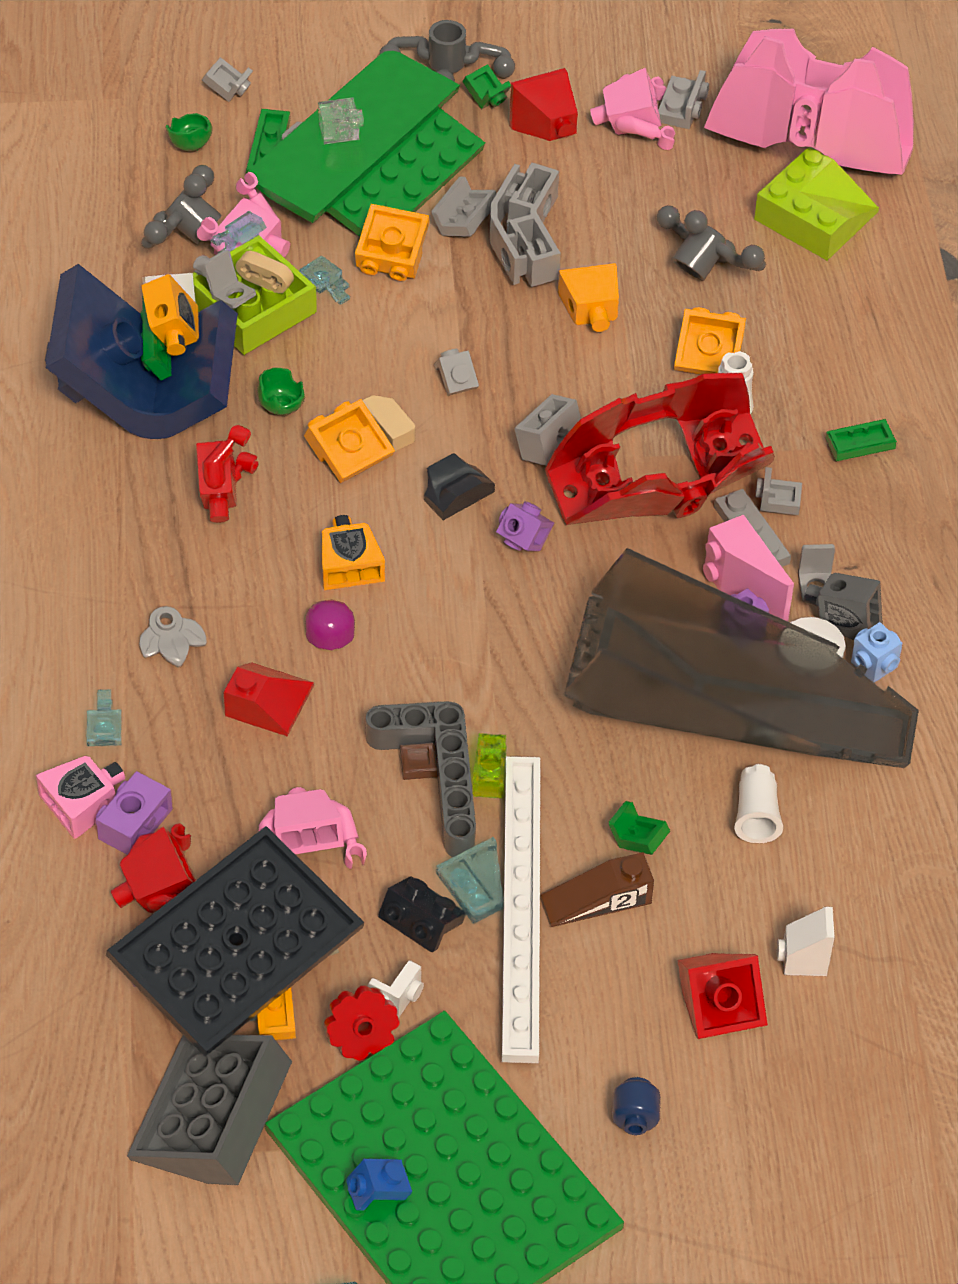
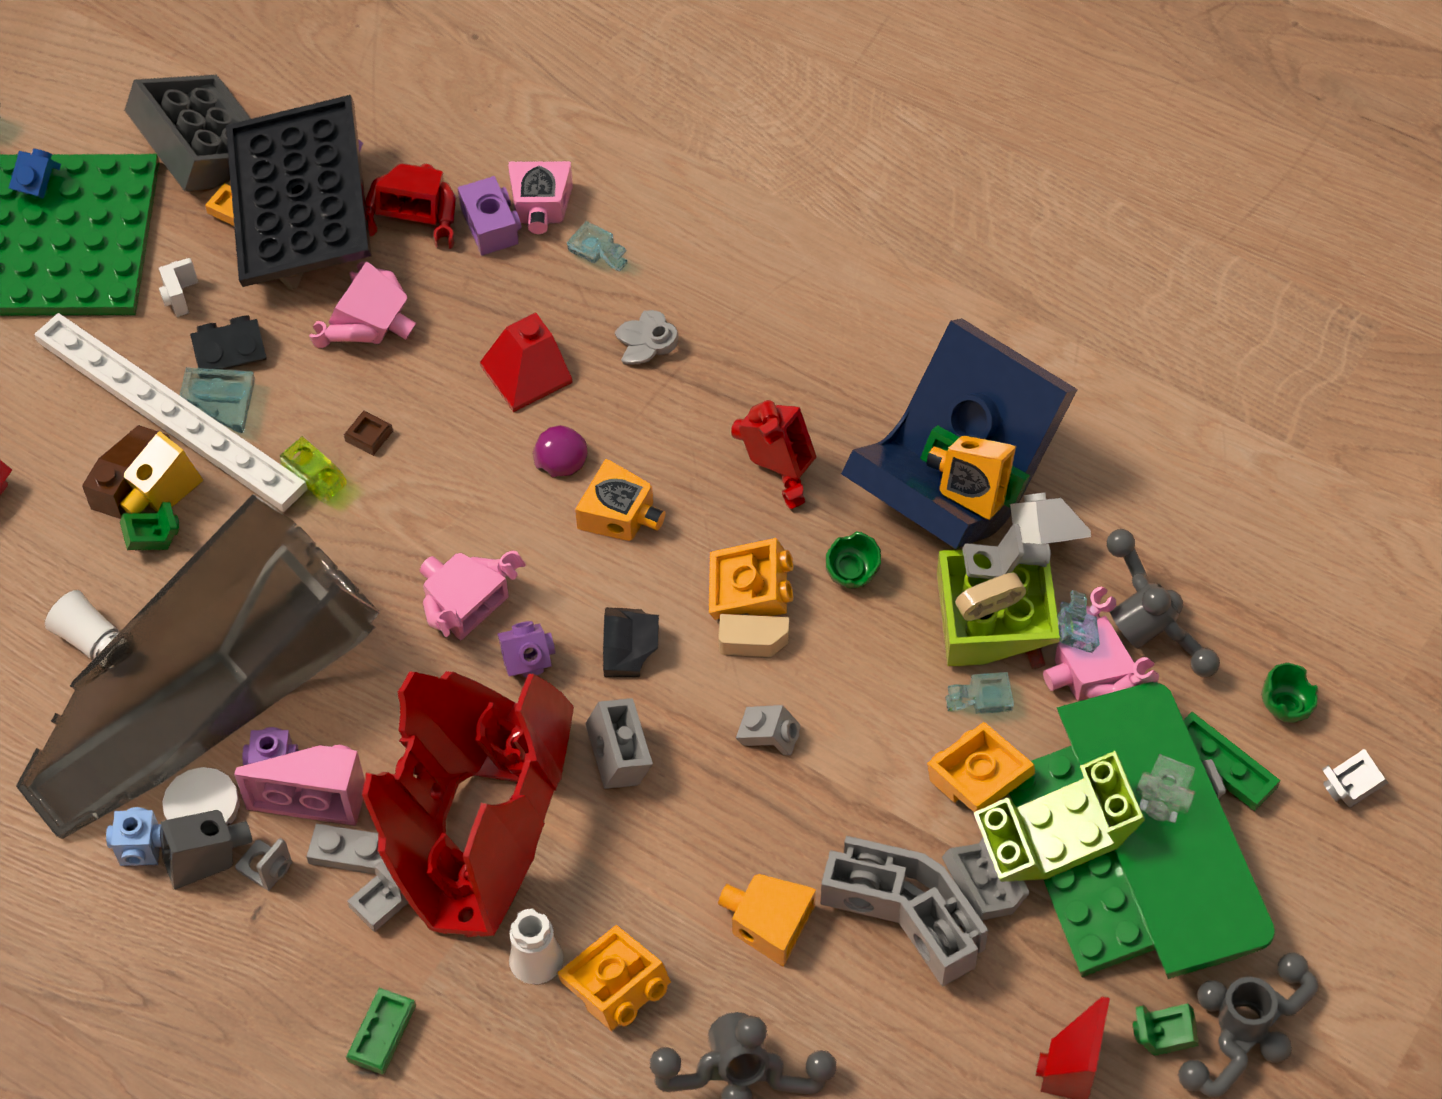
camera: 130 degrees right, 5 degrees up
(361, 1022) = (169, 240): red plant -> none
(397, 168) = (1063, 825): none -> slope
(446, 728) = (292, 418): dark grey beam -> none
(510, 595) = (465, 590): none -> bright pink torso
(588, 843) = (159, 476): none -> yellow torso

